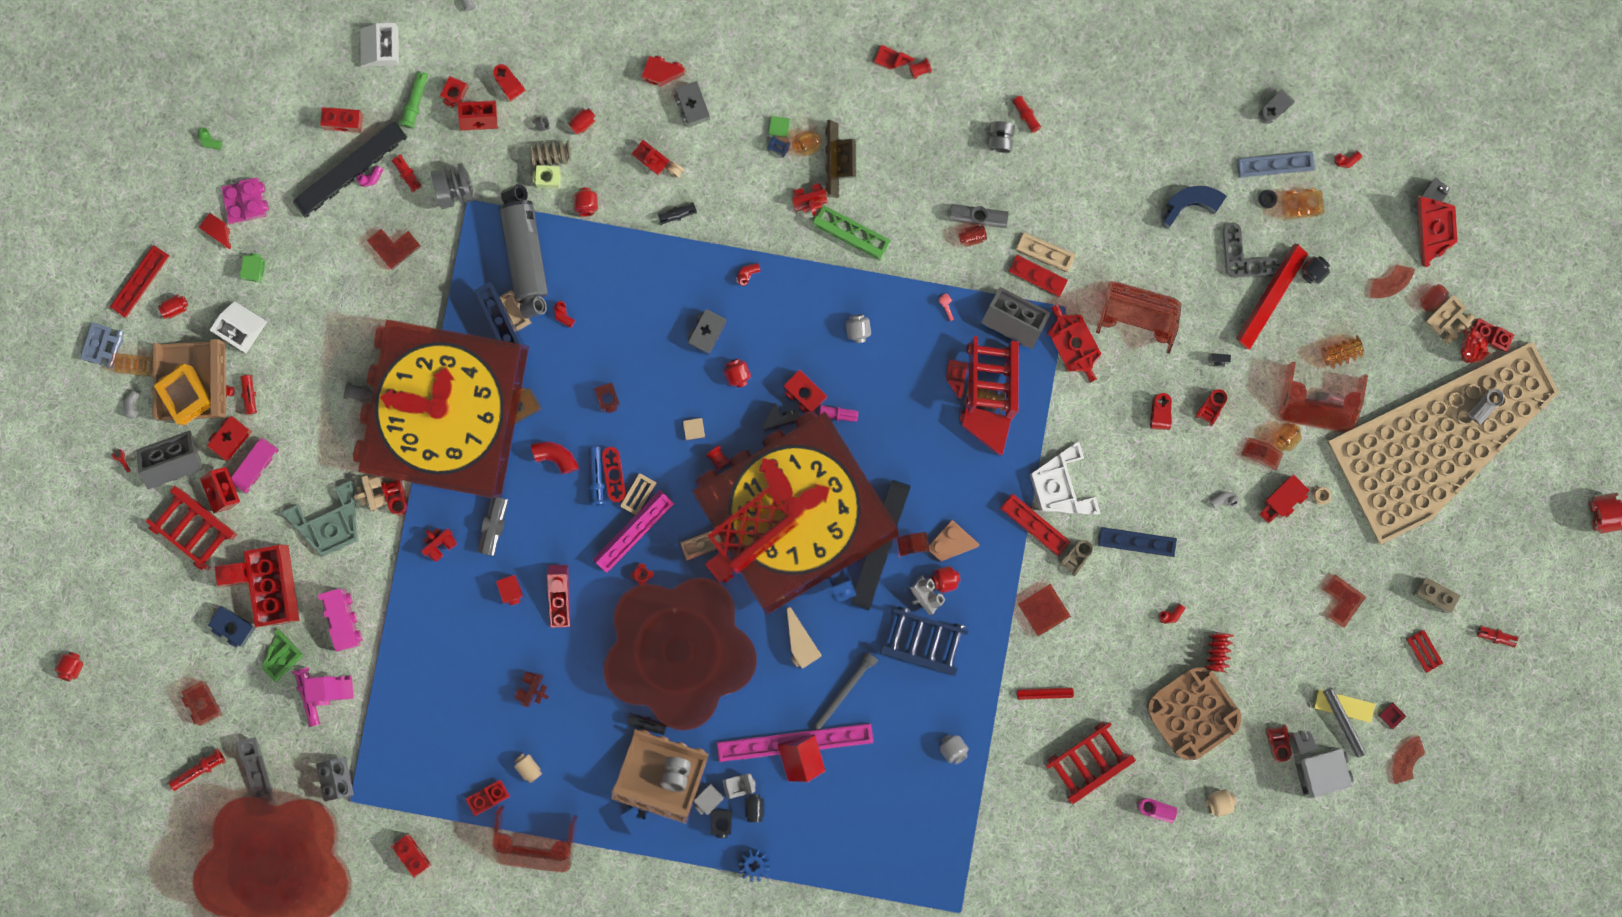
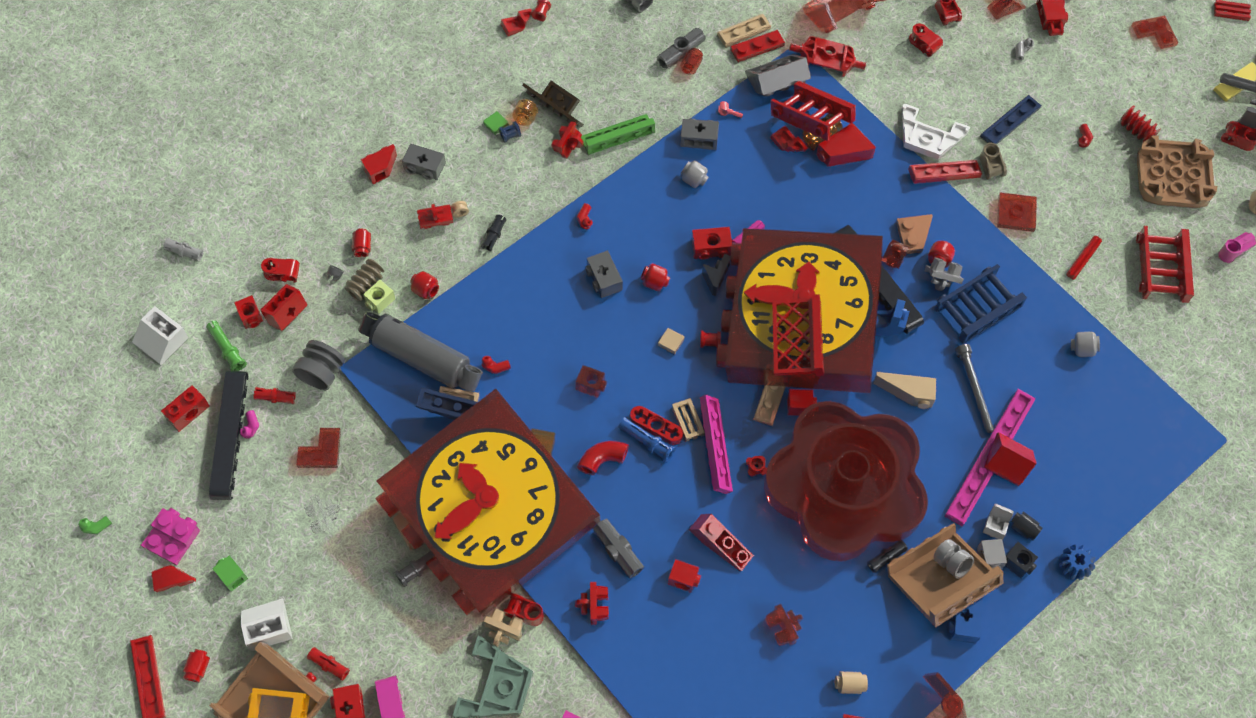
camera: 50 degrees left, 20 degrees down
(902, 311) = (699, 134): none -> dark grey brick

